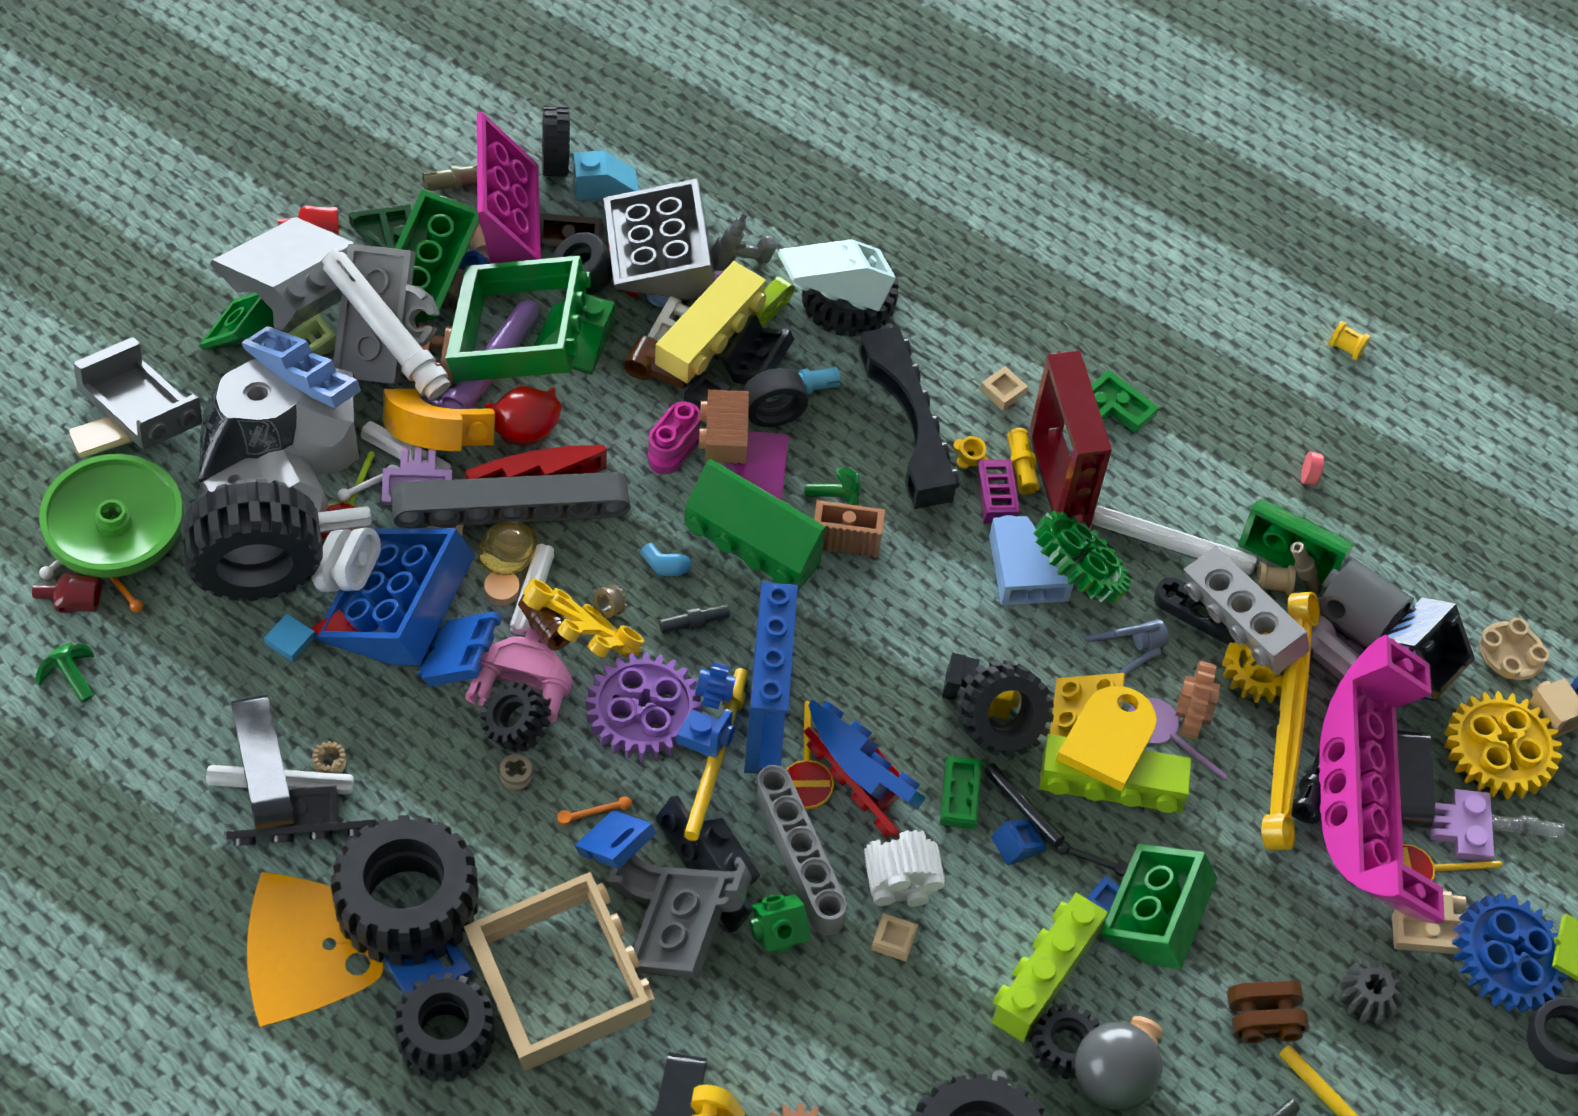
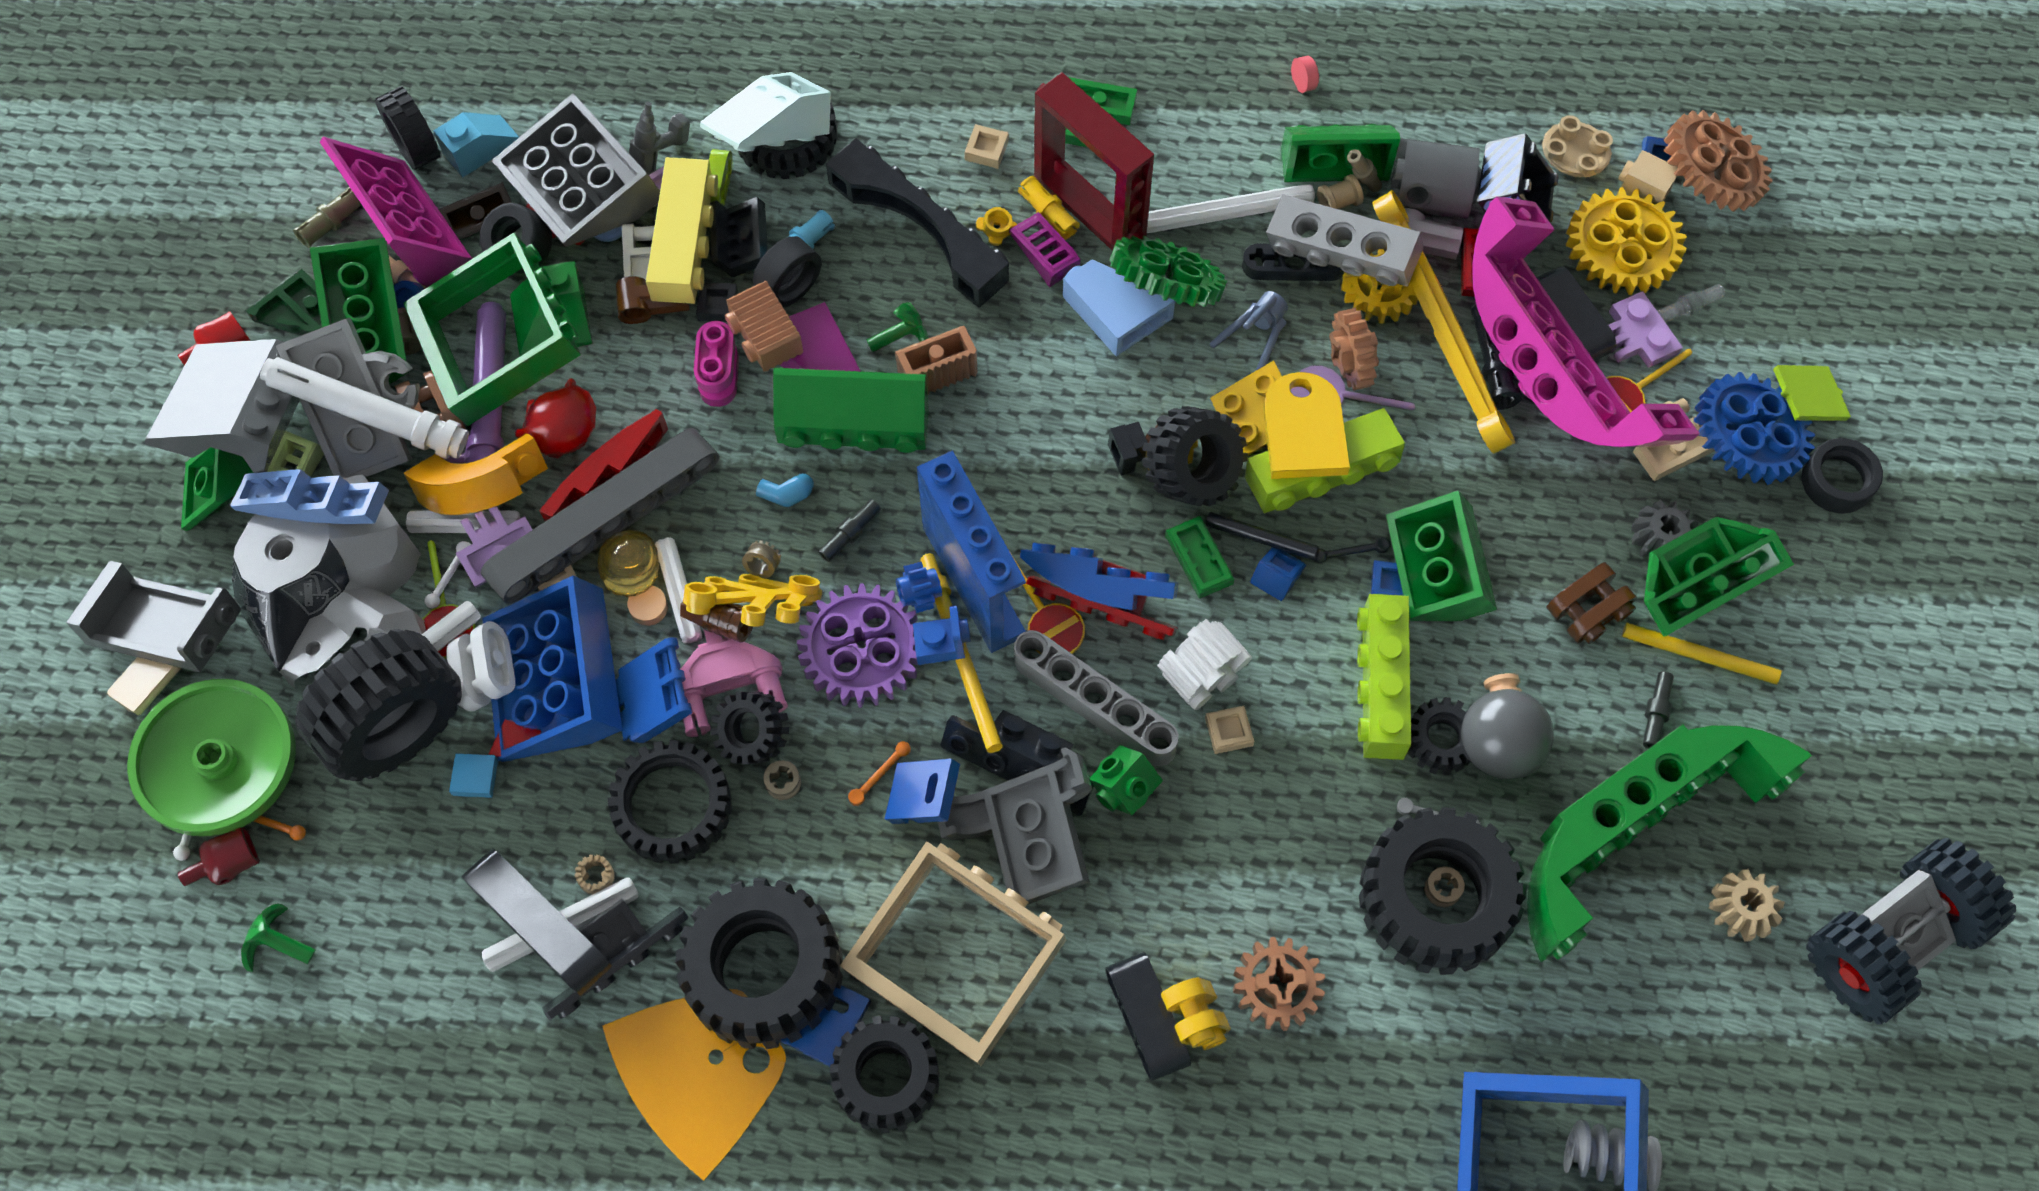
camera: 25 degrees left, 10 degrees up
(411, 702) = (649, 761): none -> black tyre
(1382, 1038) = (1709, 569): none -> green wedge

